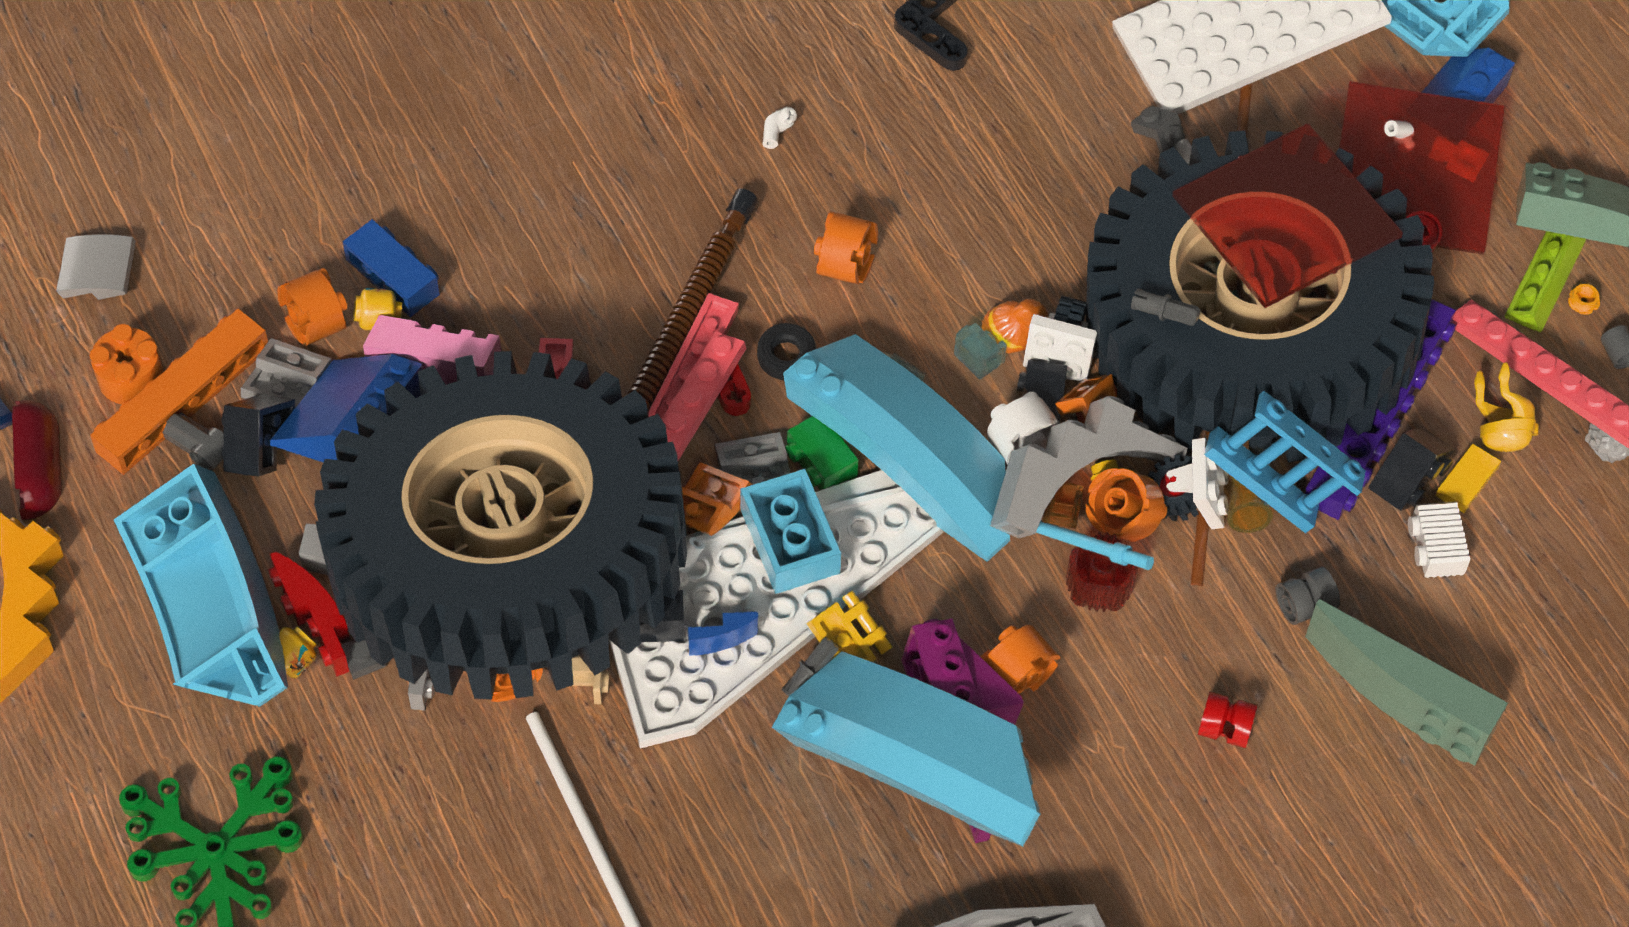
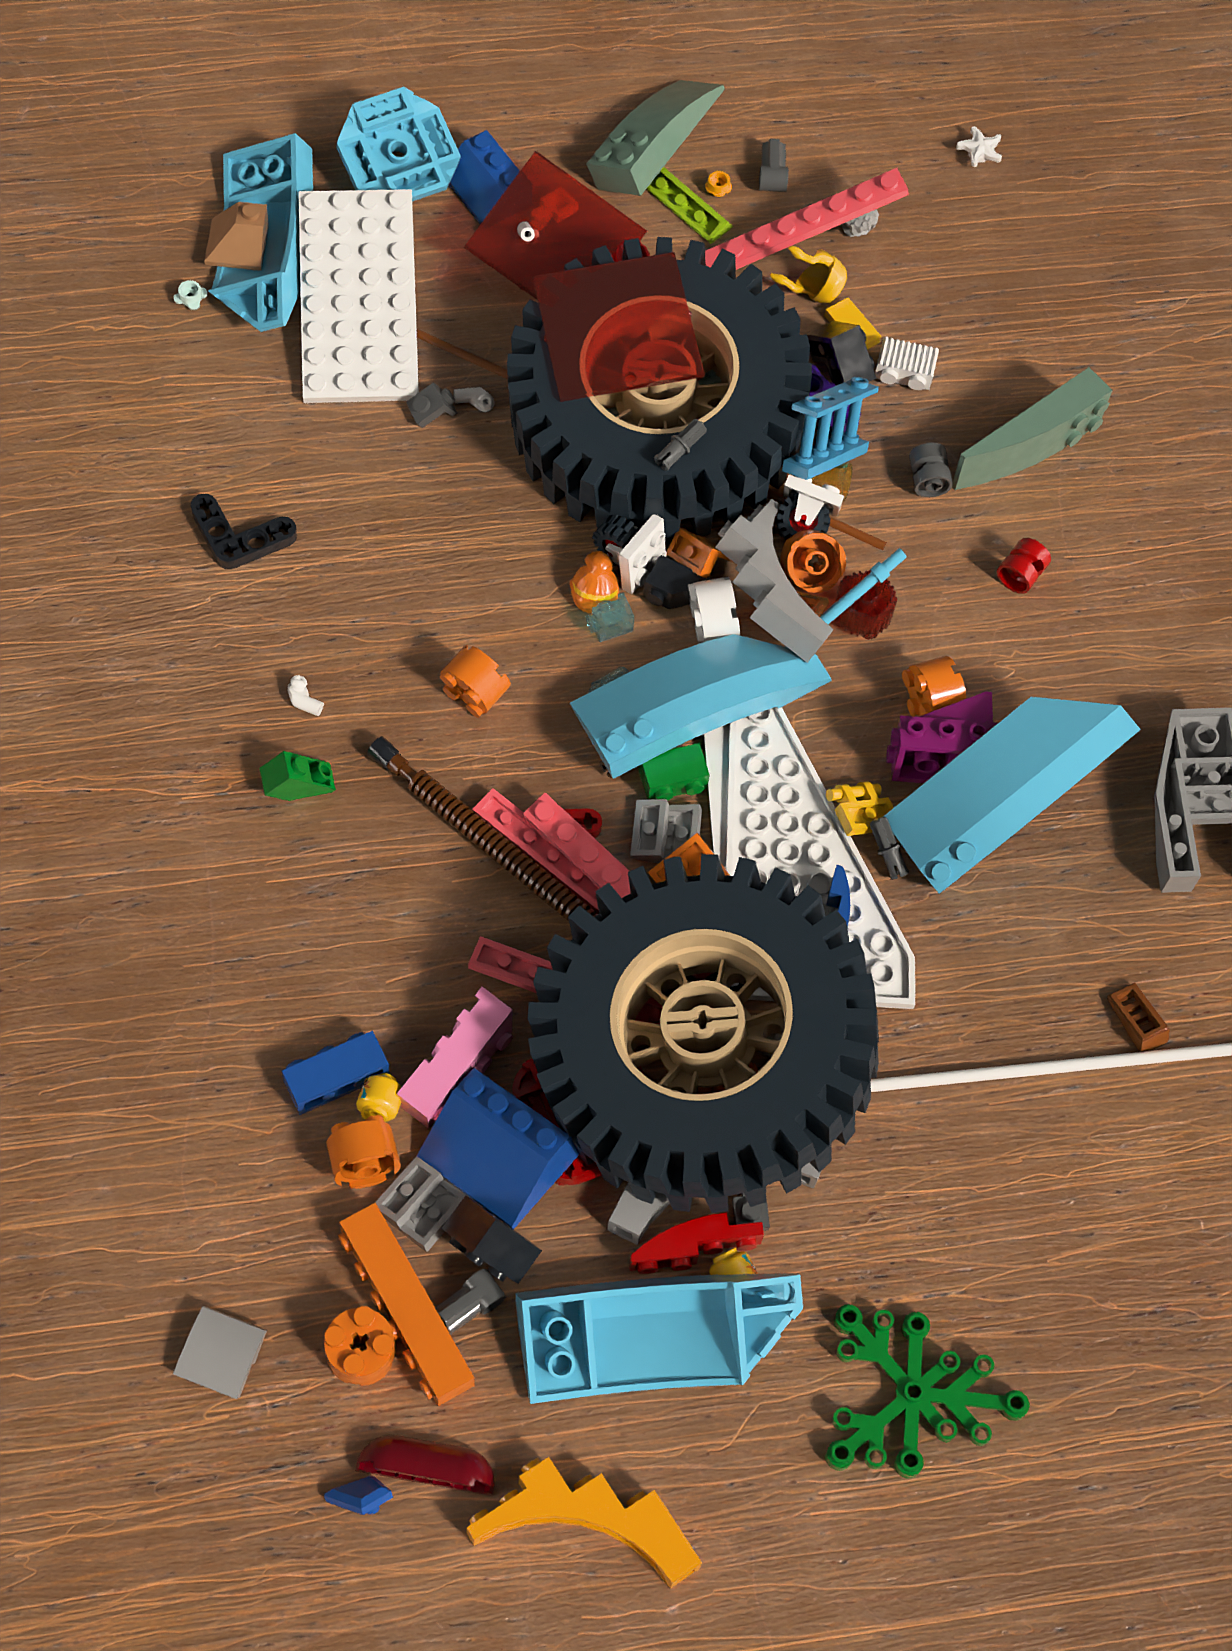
camera: 75 degrees left, 5 degrees up
(685, 145) = (296, 777): none -> green slope
(782, 334) = (558, 751): black tyre -> none
(790, 531) = (761, 815): medium azure brick -> none

